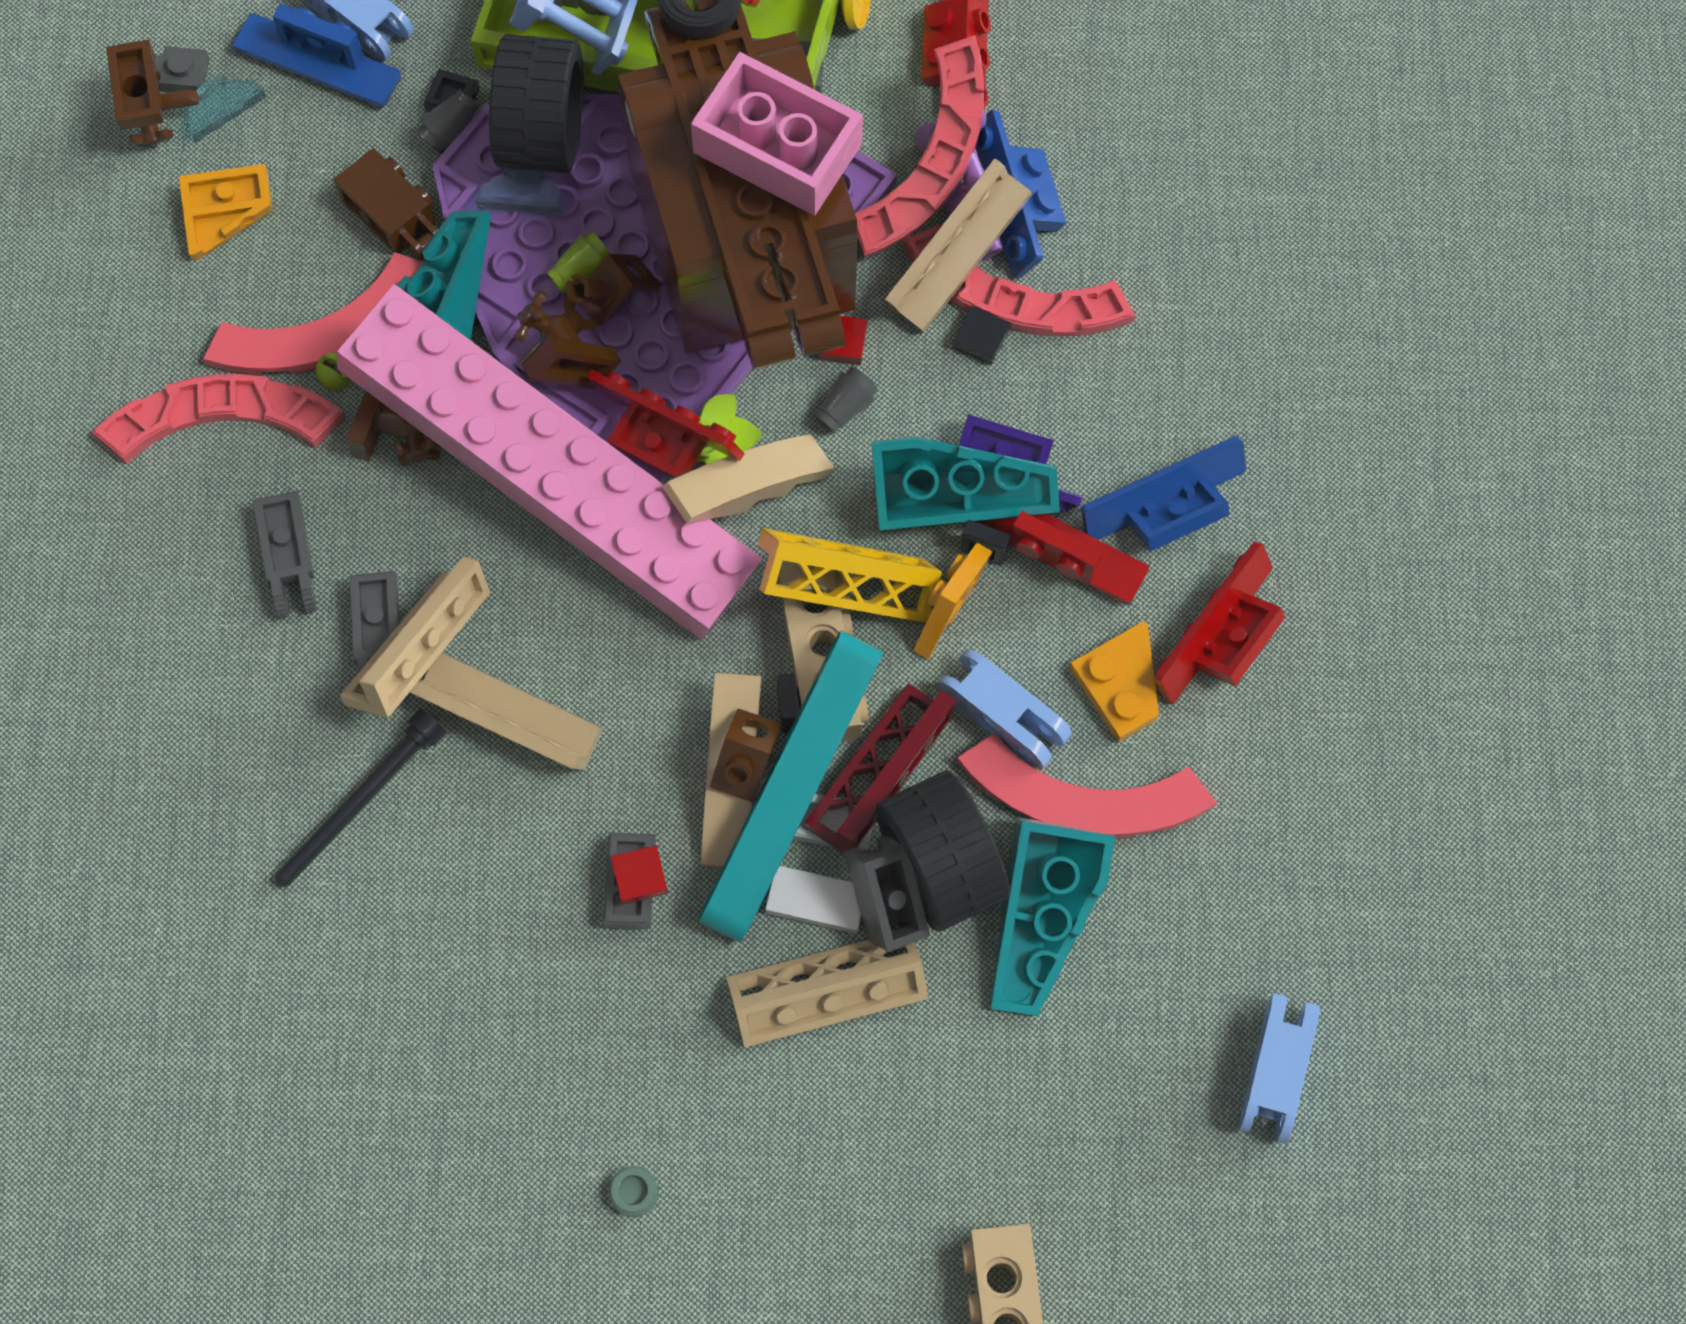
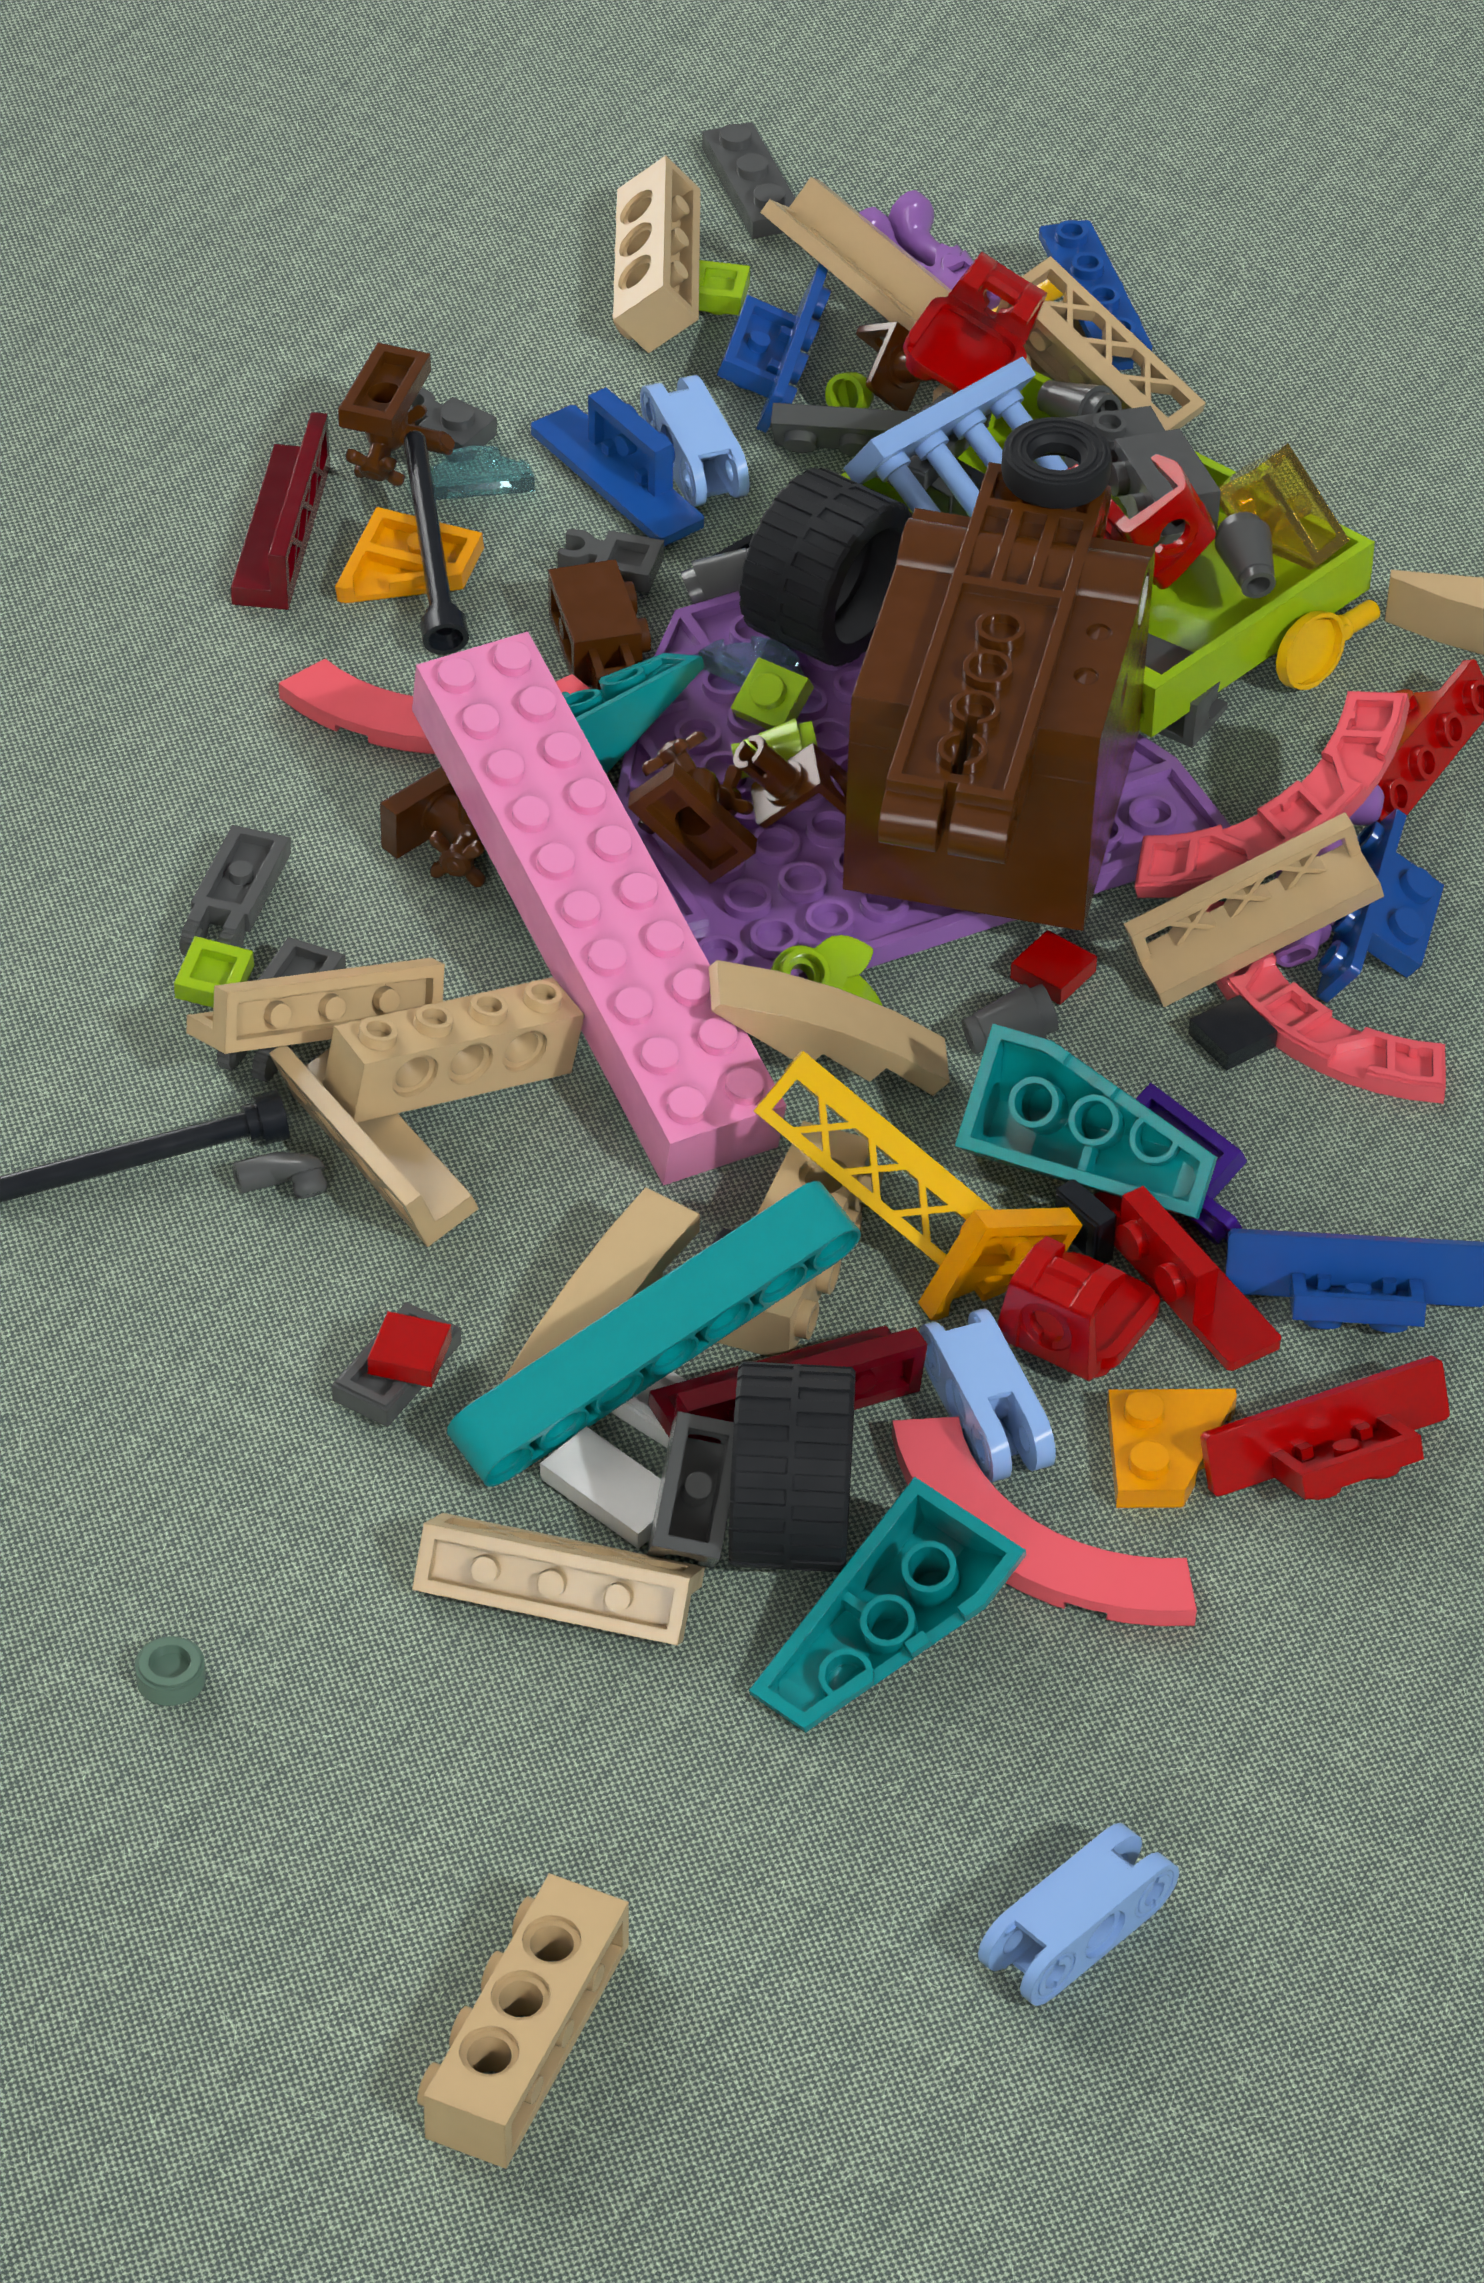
camera: 30 degrees right, 25 degrees down
(115, 213) = (283, 520): none -> dark red fence
(217, 399) = (259, 726): coral tile -> none
(285, 255) = (443, 624): none -> black piece
(317, 630) = (209, 965): none -> lime plate
(329, 378) = (409, 759): lime hinge -> none
(364, 133) = (635, 555): none -> dark grey plate
(459, 761) = (281, 1167): none -> dark grey arm
(521, 622) = (453, 1049): none -> tan brick
(548, 217) = (771, 695): none -> lime plate
(657, 434) = (755, 925): red bracket -> none
(744, 756) = (615, 1271): reddish brown bracket -> none
(777, 133) = (1050, 598): bright pink brick -> none
(1021, 613) = (1075, 1310): none -> red piece

